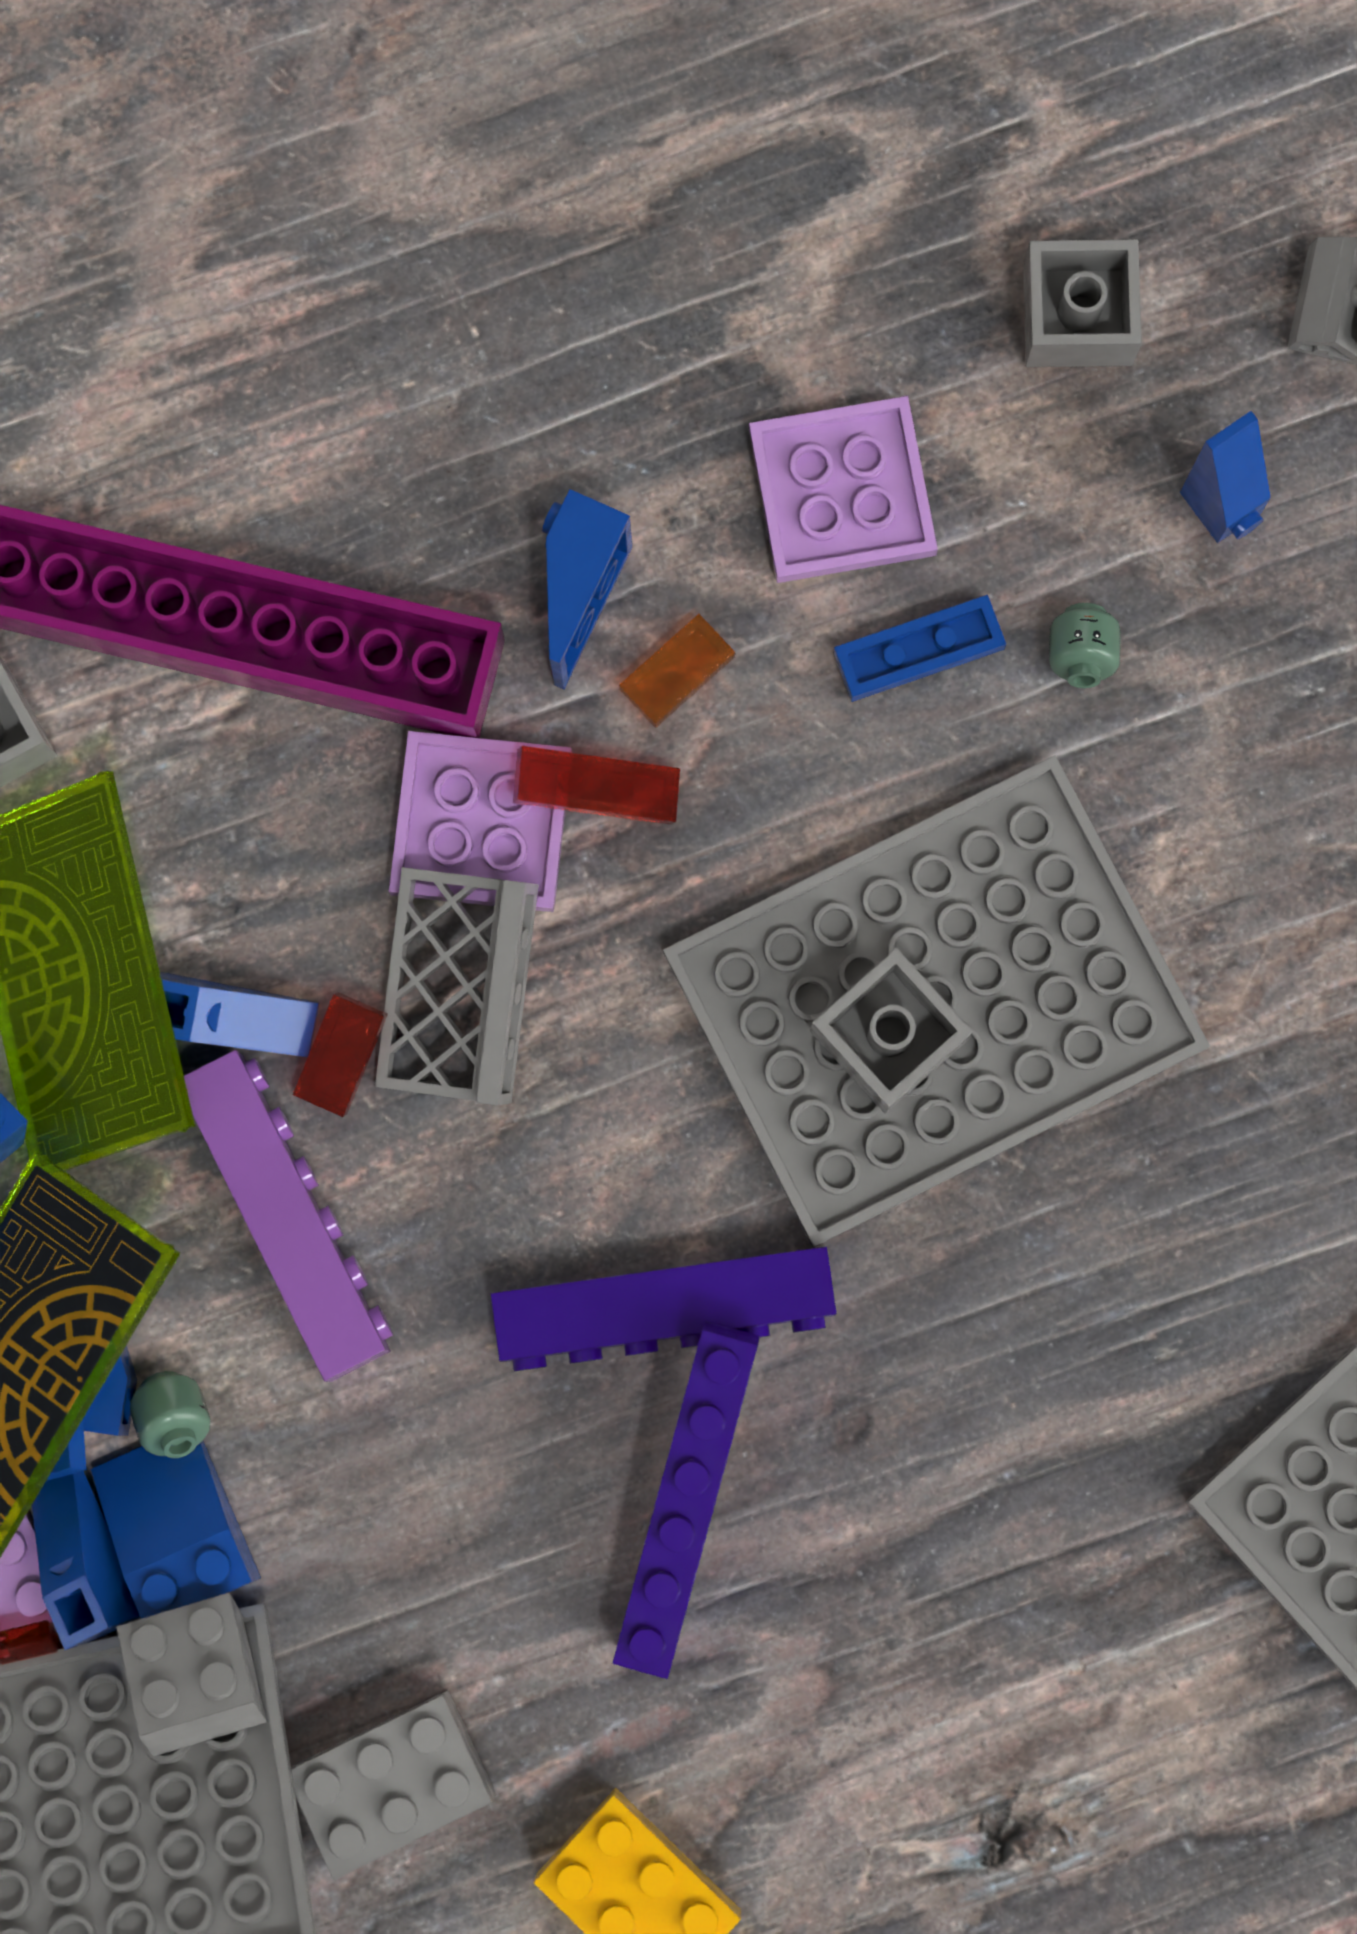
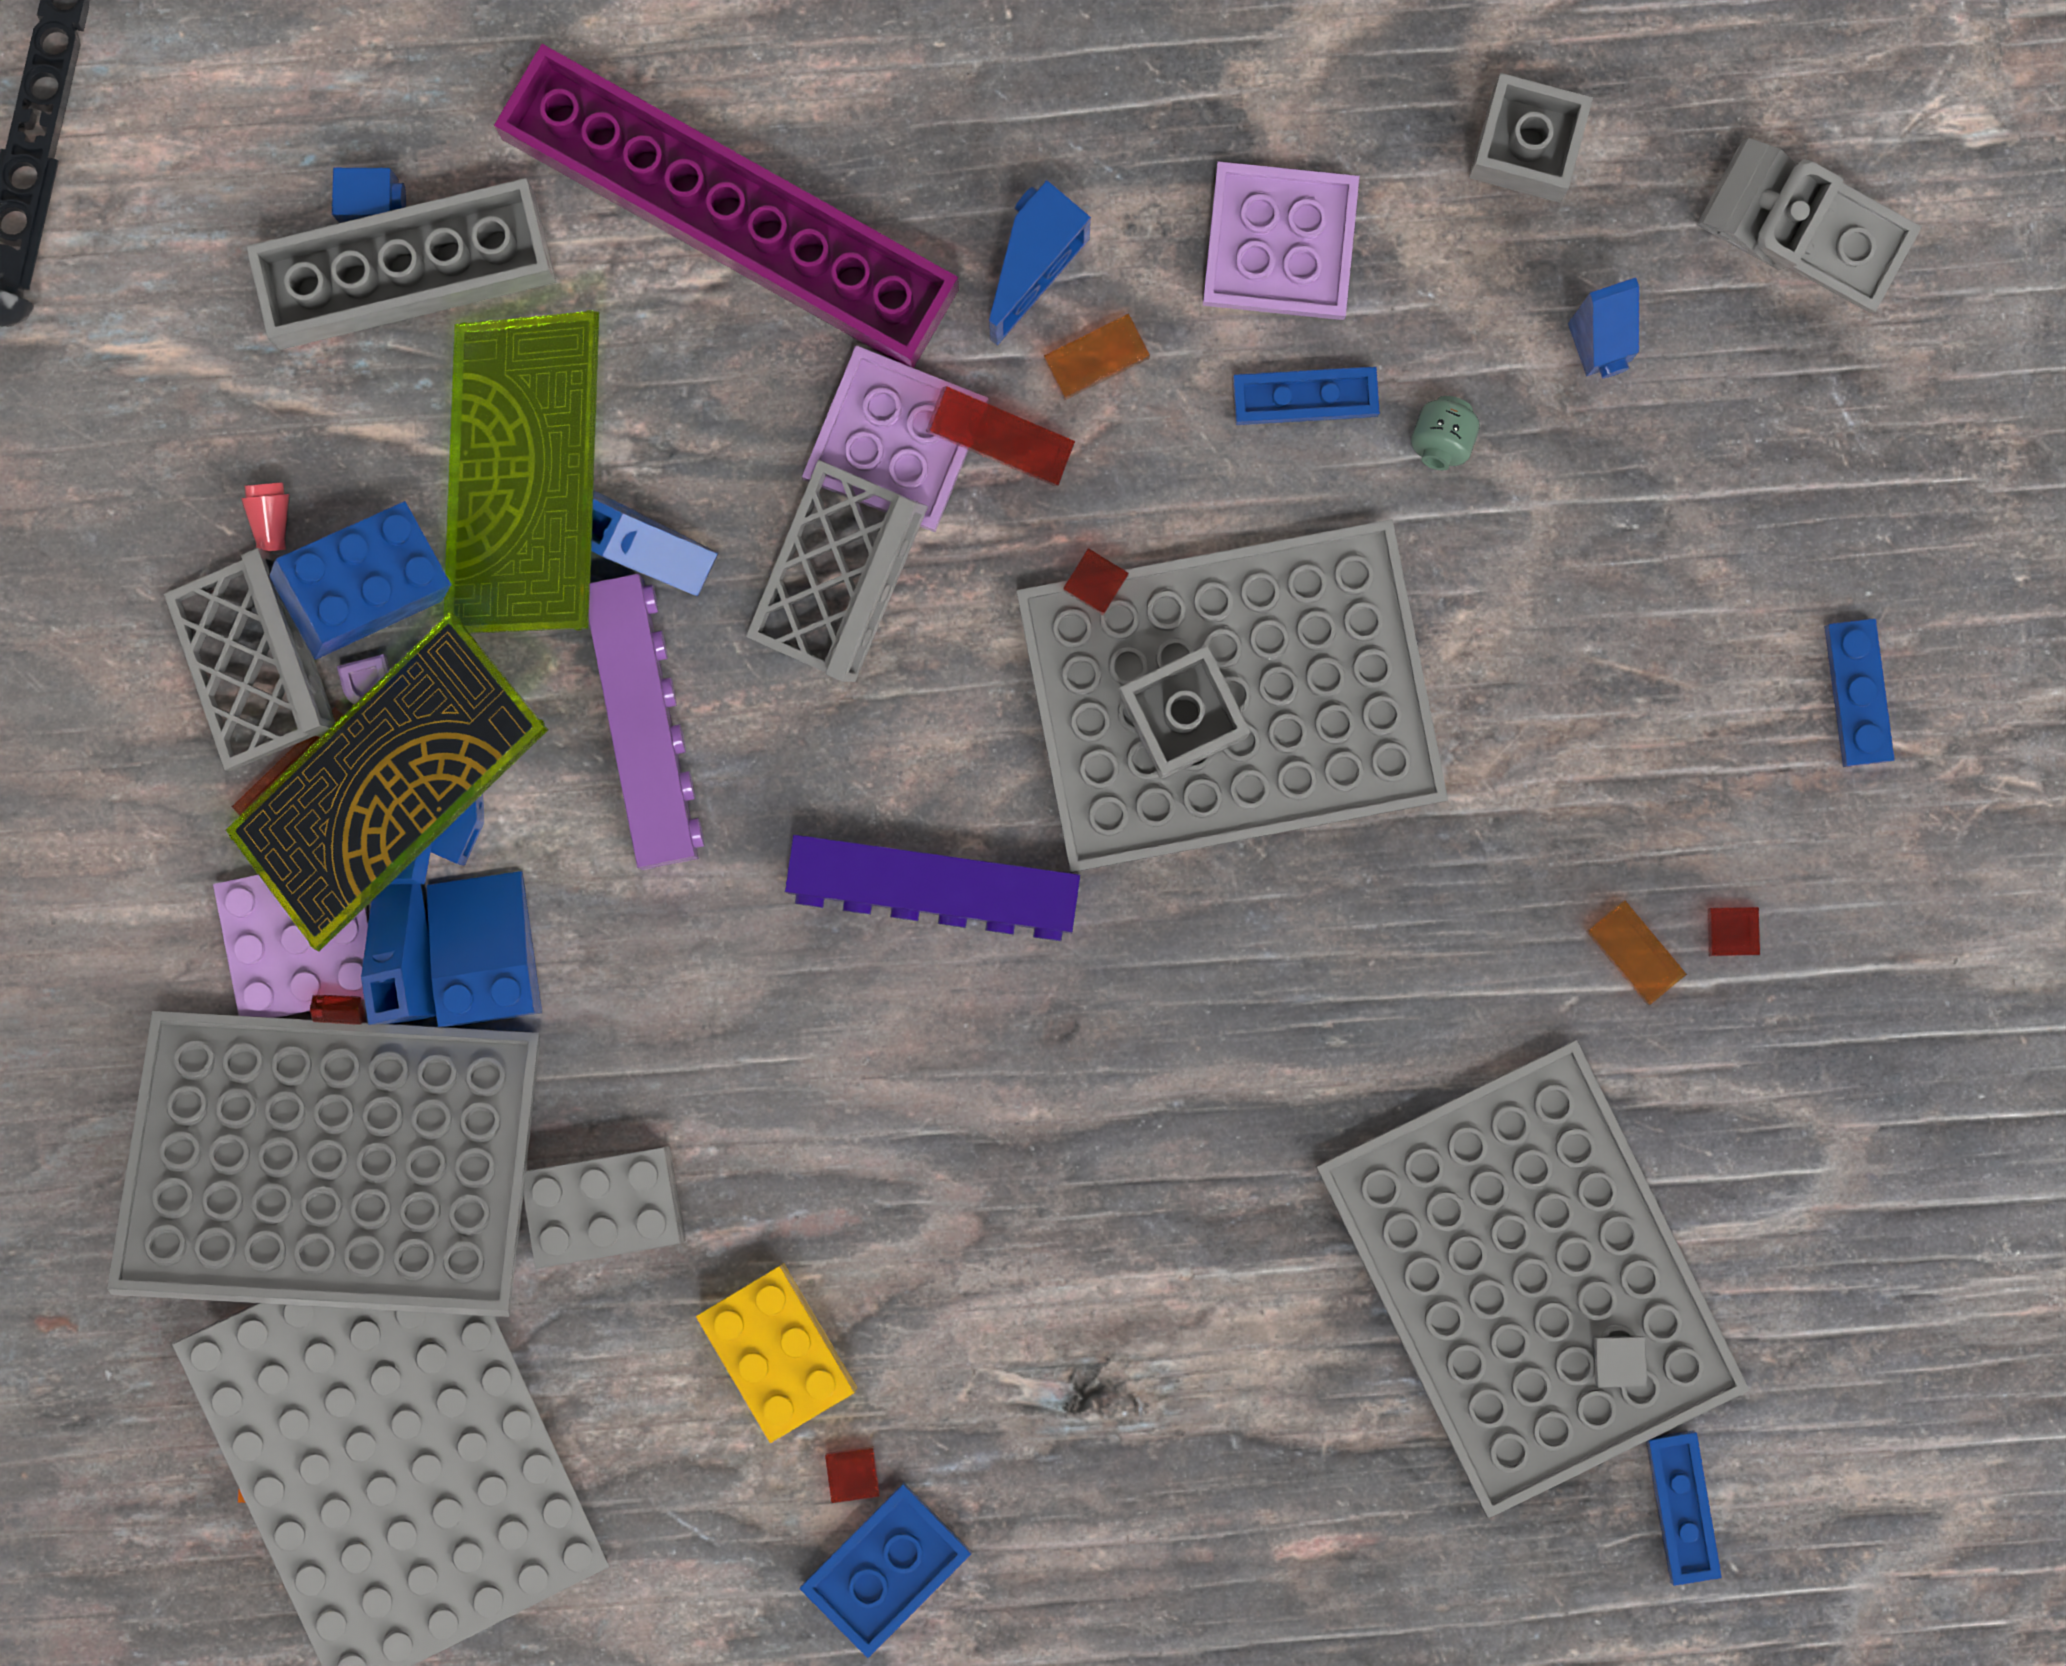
camera: 15 degrees right, 5 degrees up
(169, 1412) = (503, 858): sand green head -> none
(190, 1674) = (465, 1072): light grey brick -> none
(340, 1054) = (724, 601): clear red tile -> none
(686, 1499) = (906, 1046): dark purple brick -> none
(748, 915) = (1095, 581): none -> clear red tile

